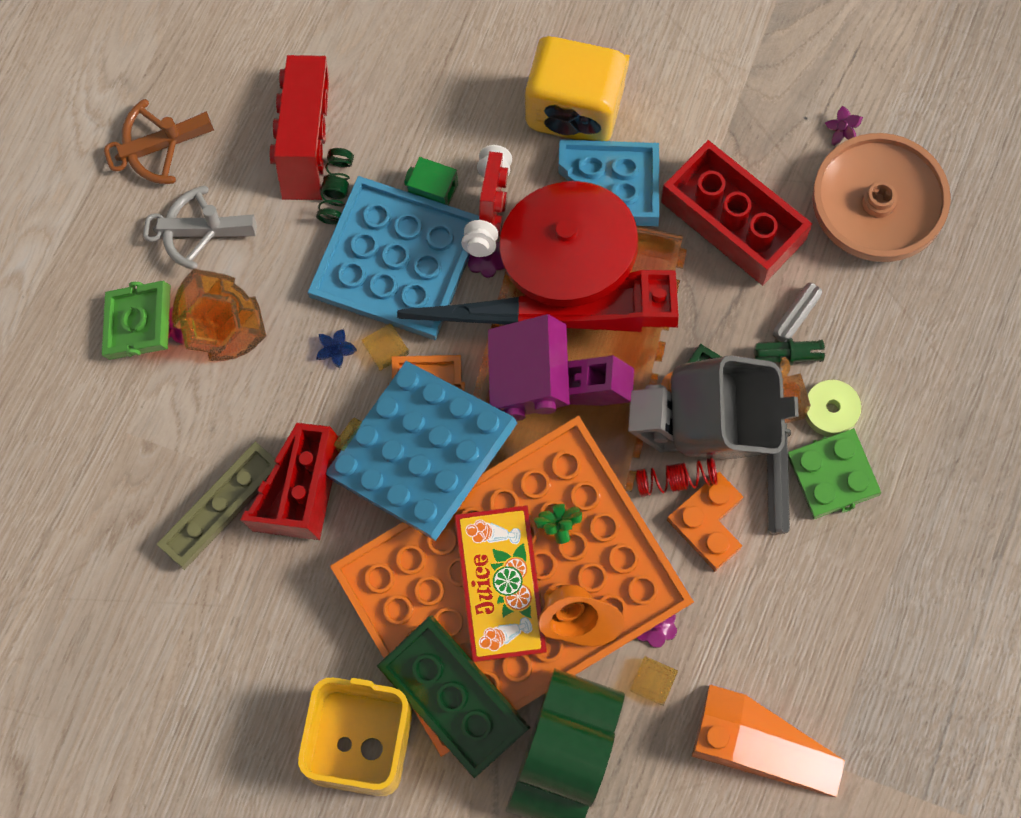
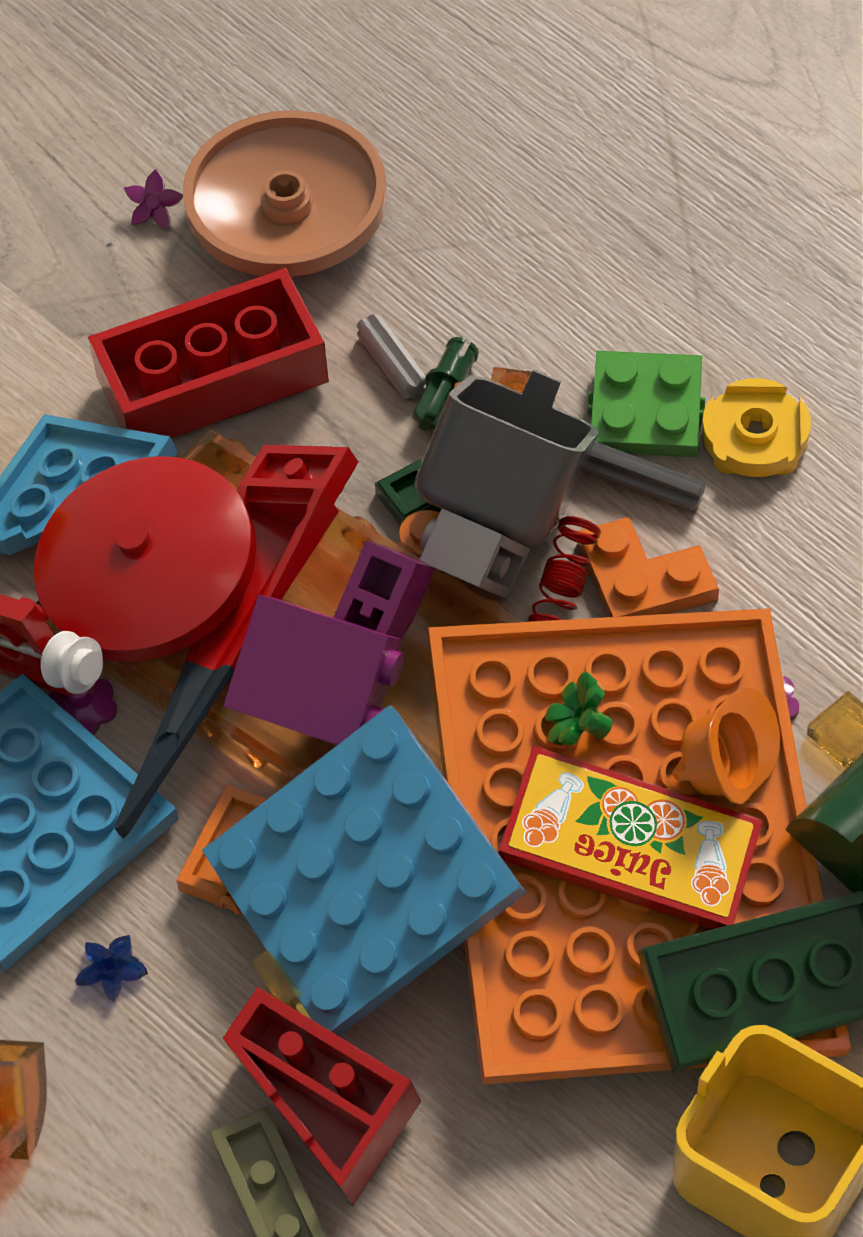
camera: 65 degrees left, 15 degrees down
(383, 345) = (148, 893): clear yellow tile -> none
(840, 395) = (560, 354): yellowish green piece -> none
(853, 527) = (750, 453): none -> yellow plate

